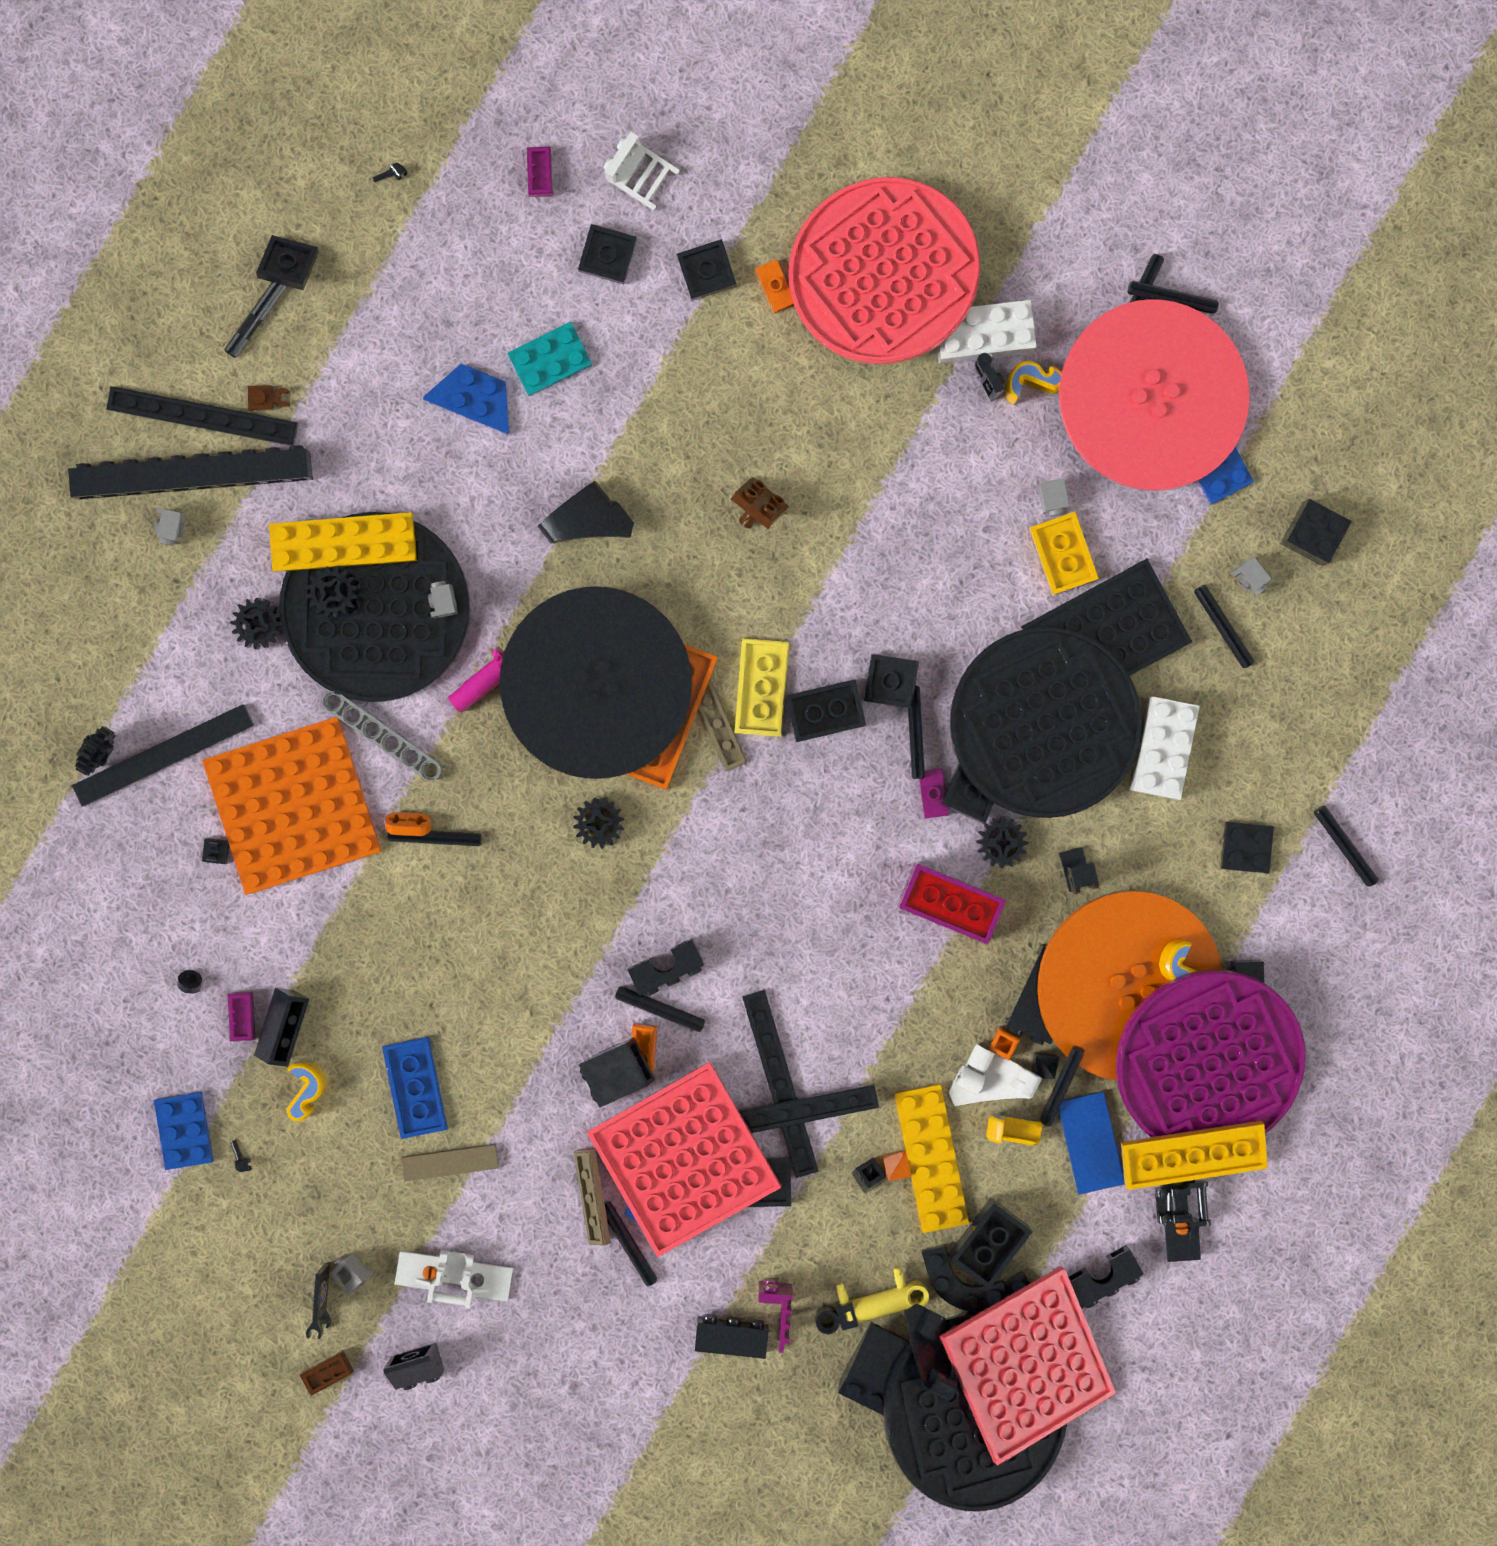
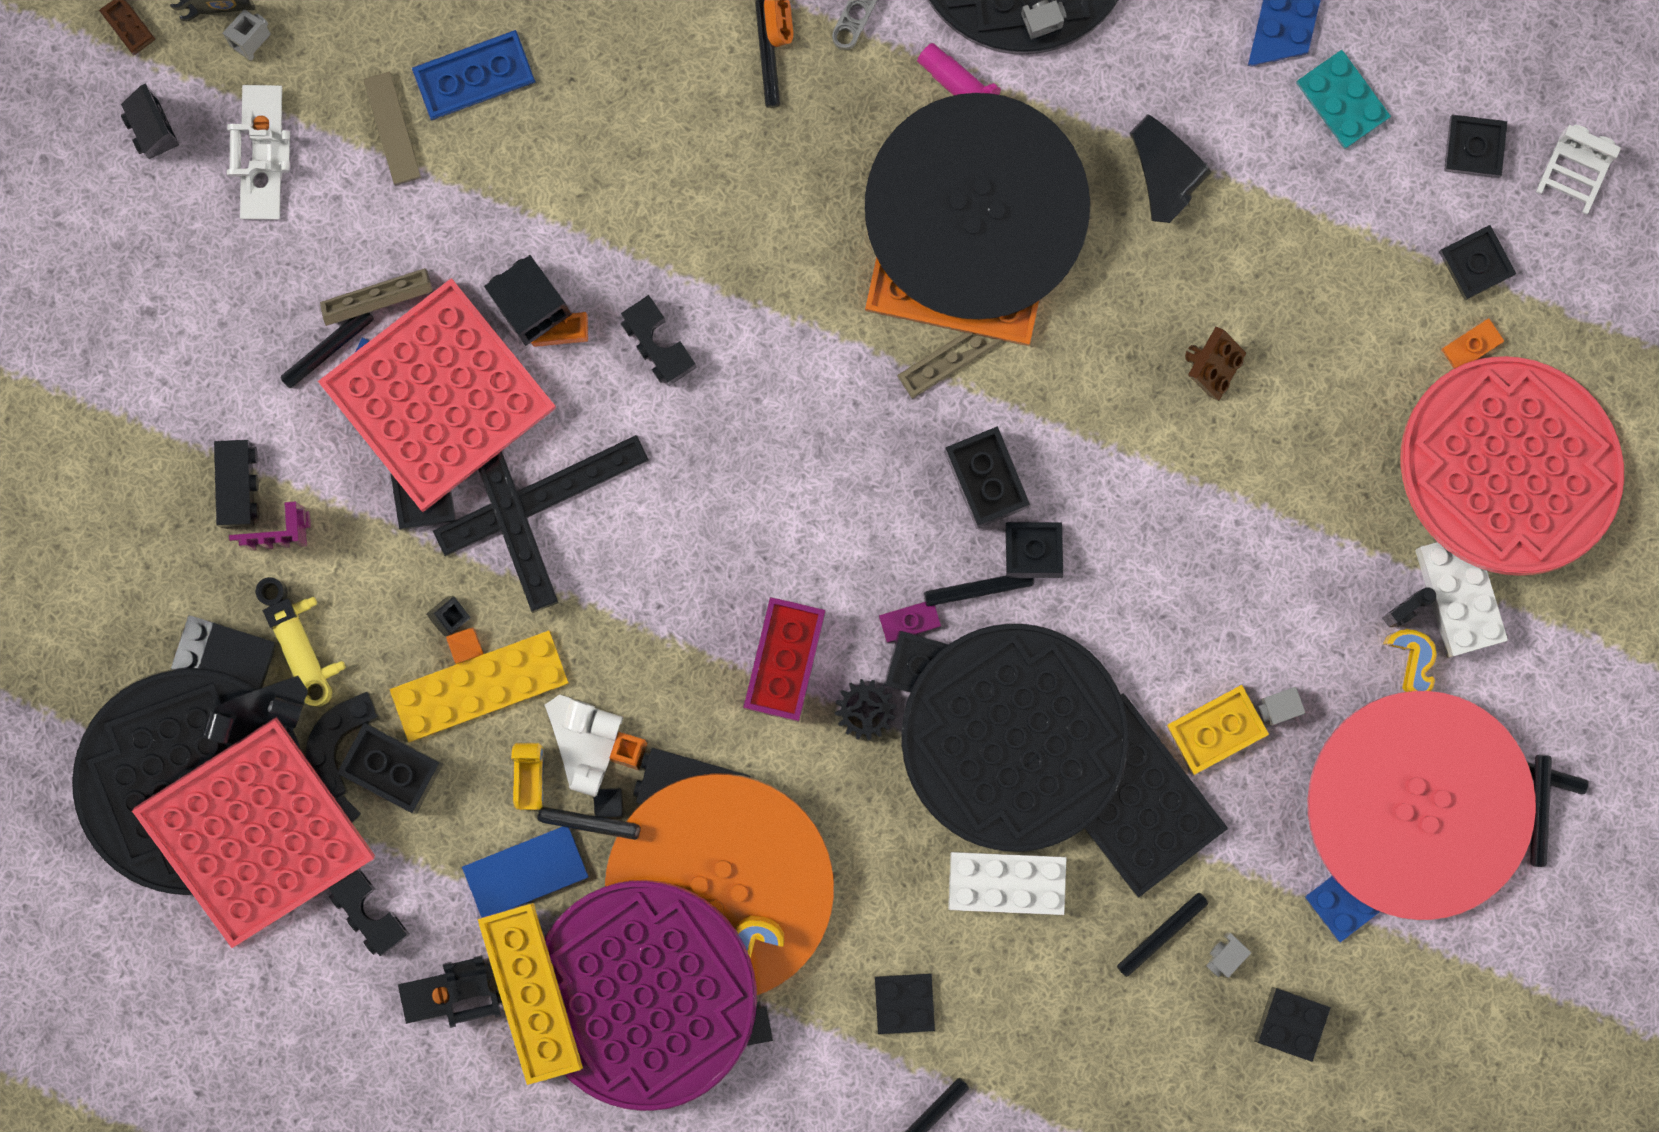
camera: 85 degrees right, 5 degrees down
(539, 172) = (1557, 54): magenta plate -> none
(597, 811) = (826, 232): black gear -> none
(660, 1009) = (607, 342): black axle -> none
(761, 687) = (1003, 401): light yellow tile -> none
(1077, 870) = (848, 801): black piece -> none

